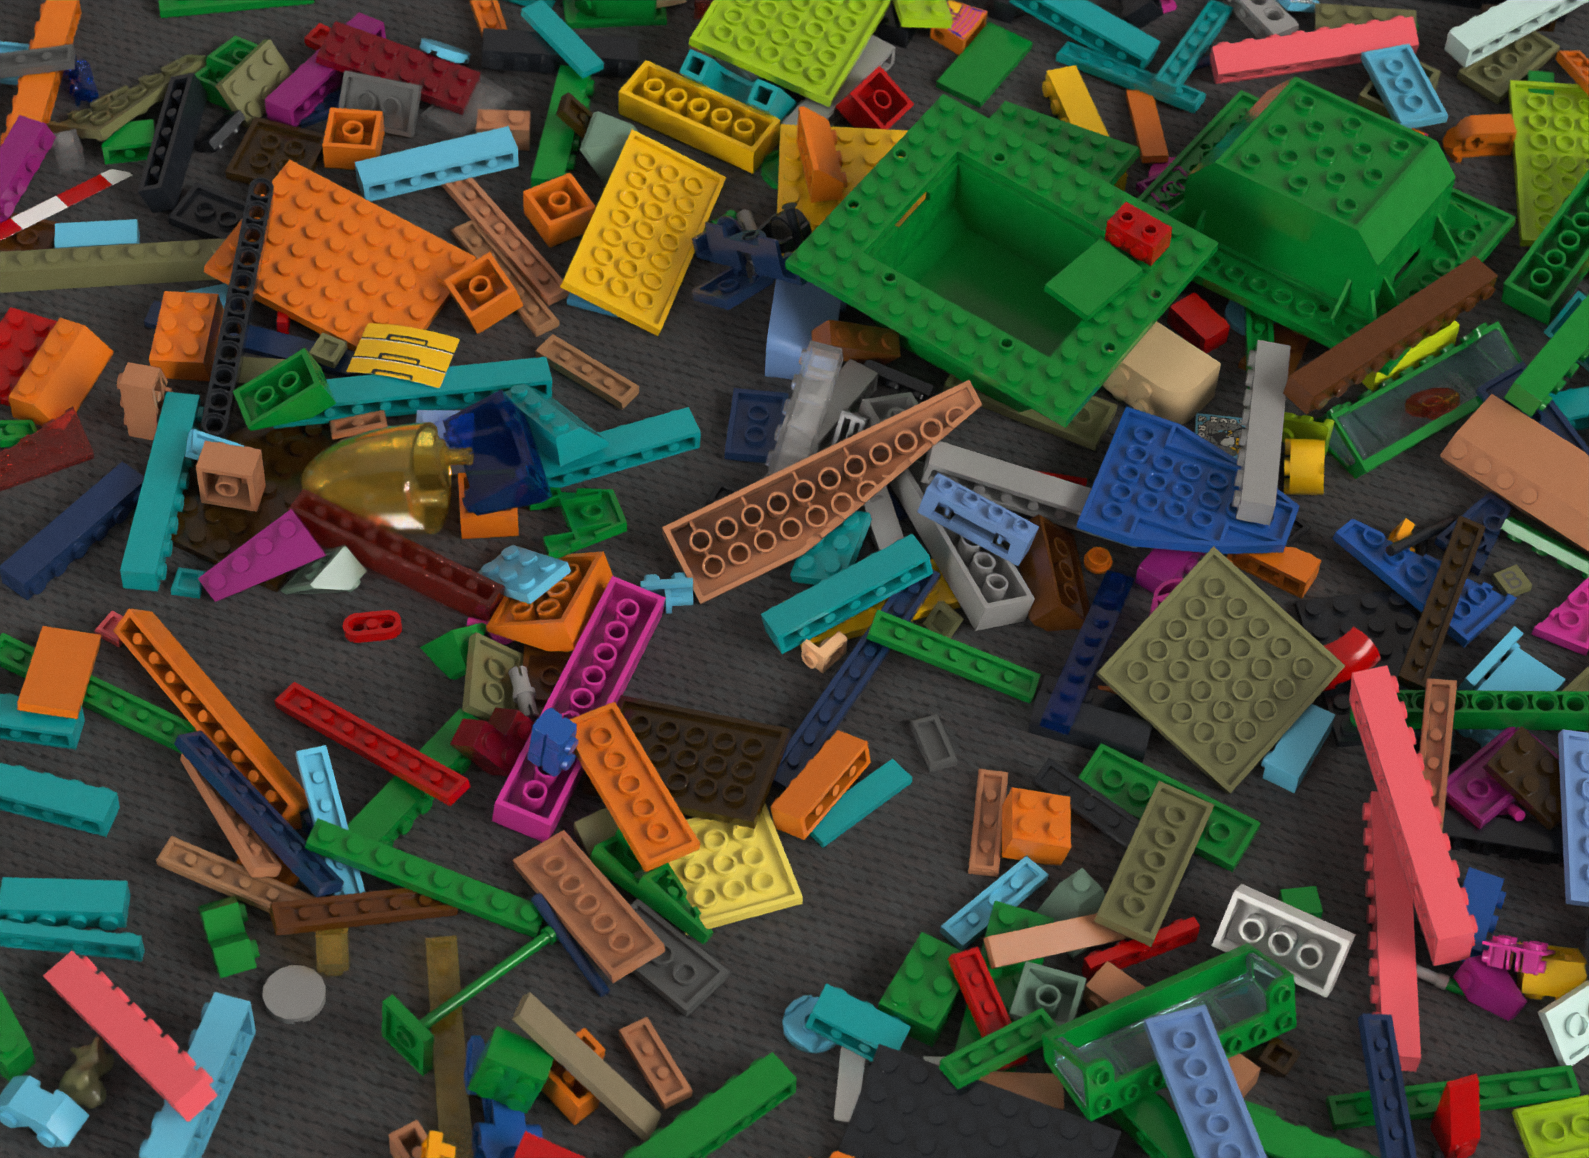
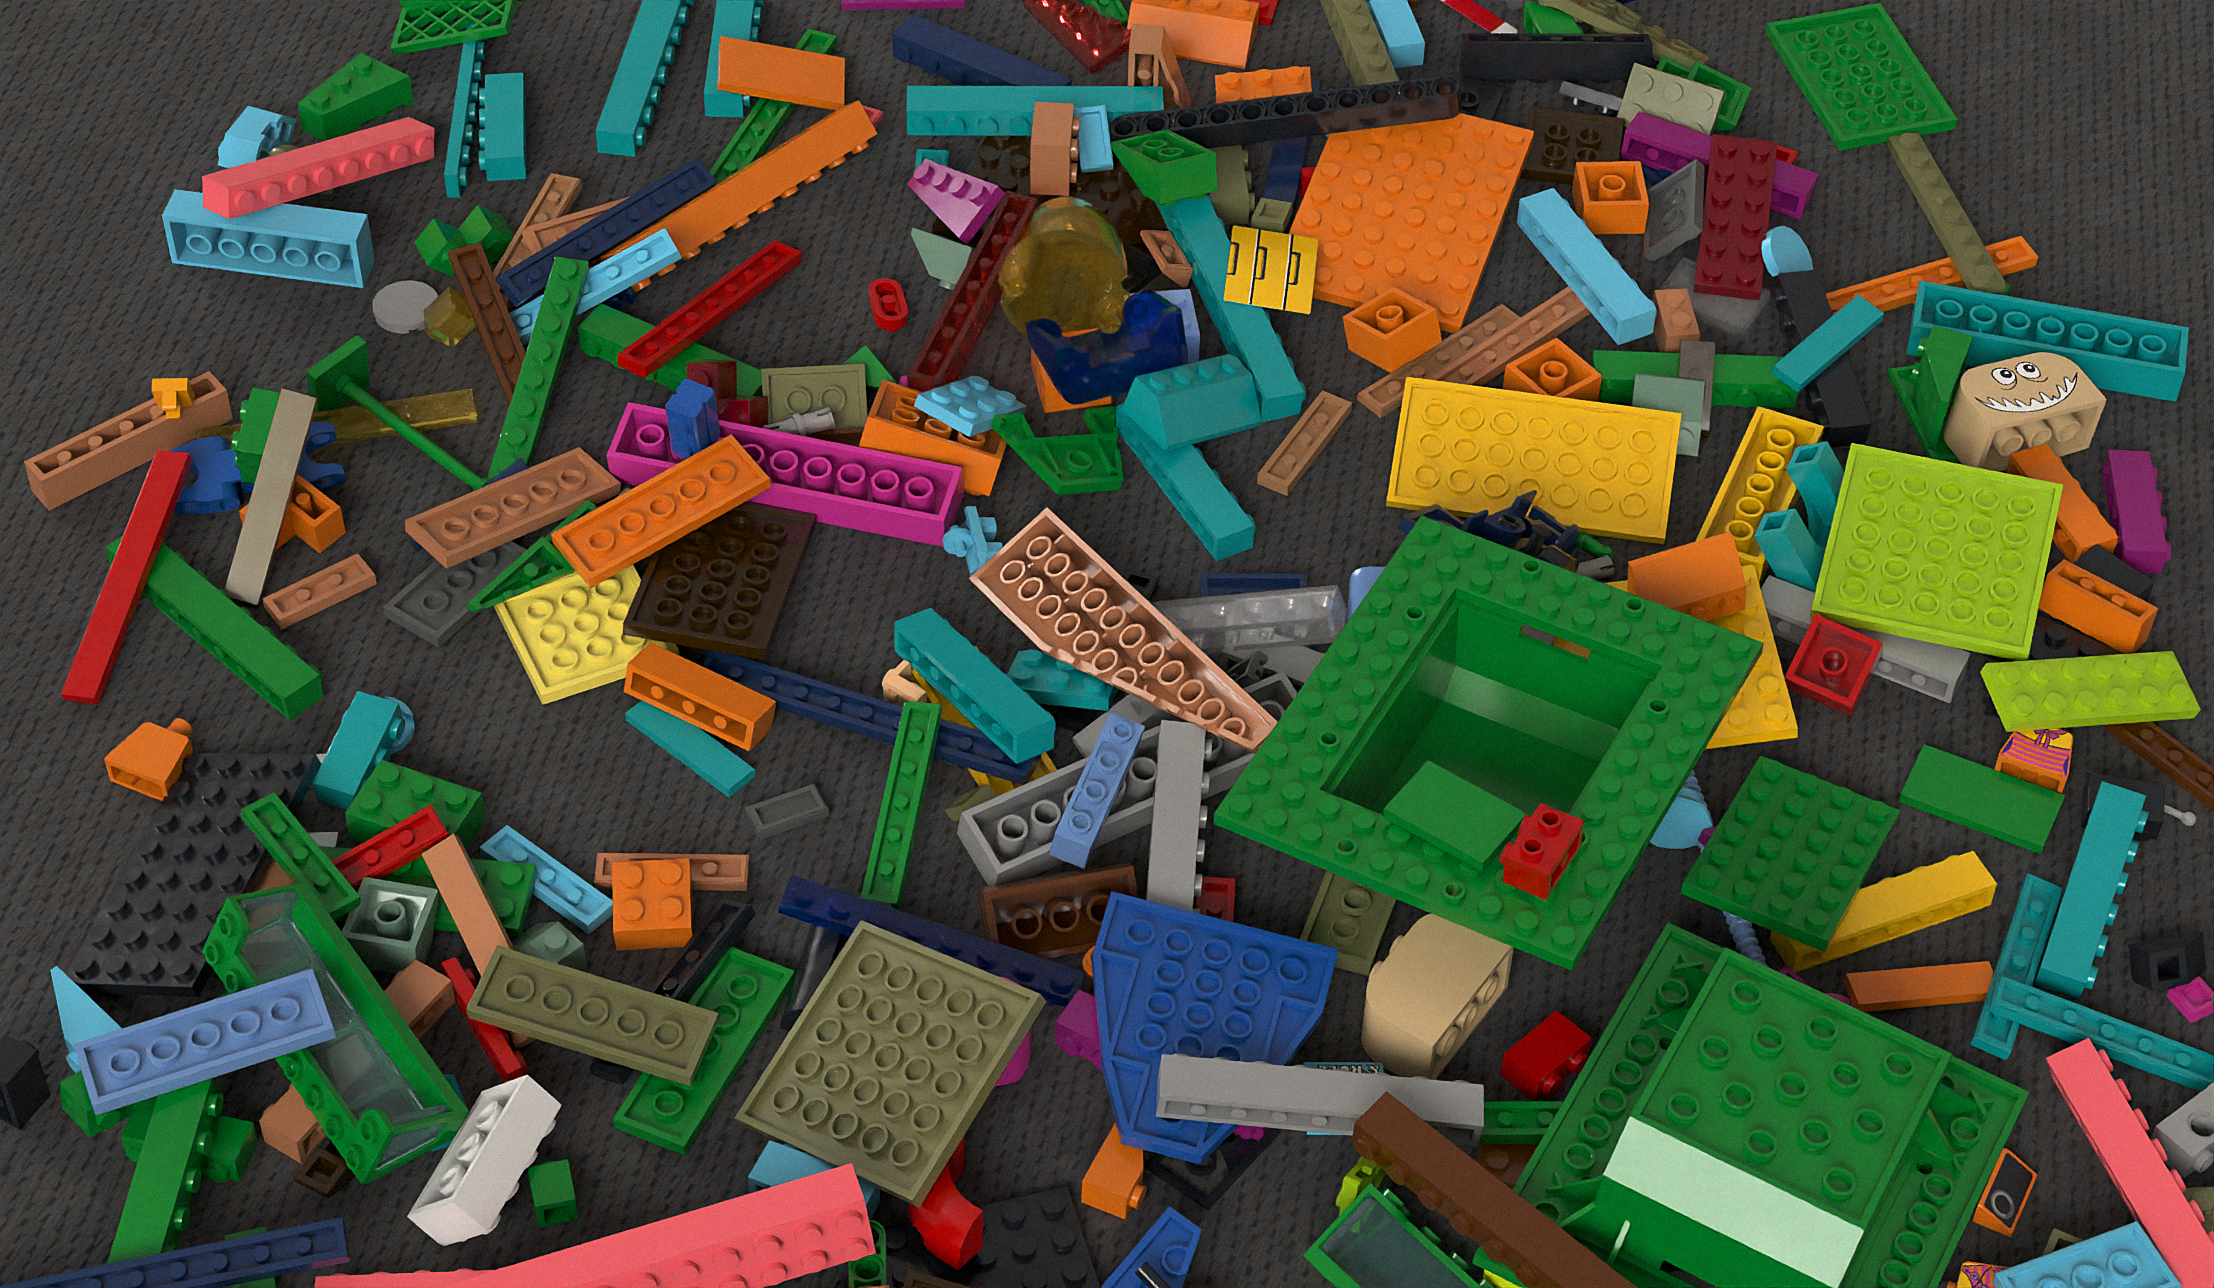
camera: 85 degrees right, 5 degrees down
(1304, 466) = (1296, 1180): yellow brick -> none

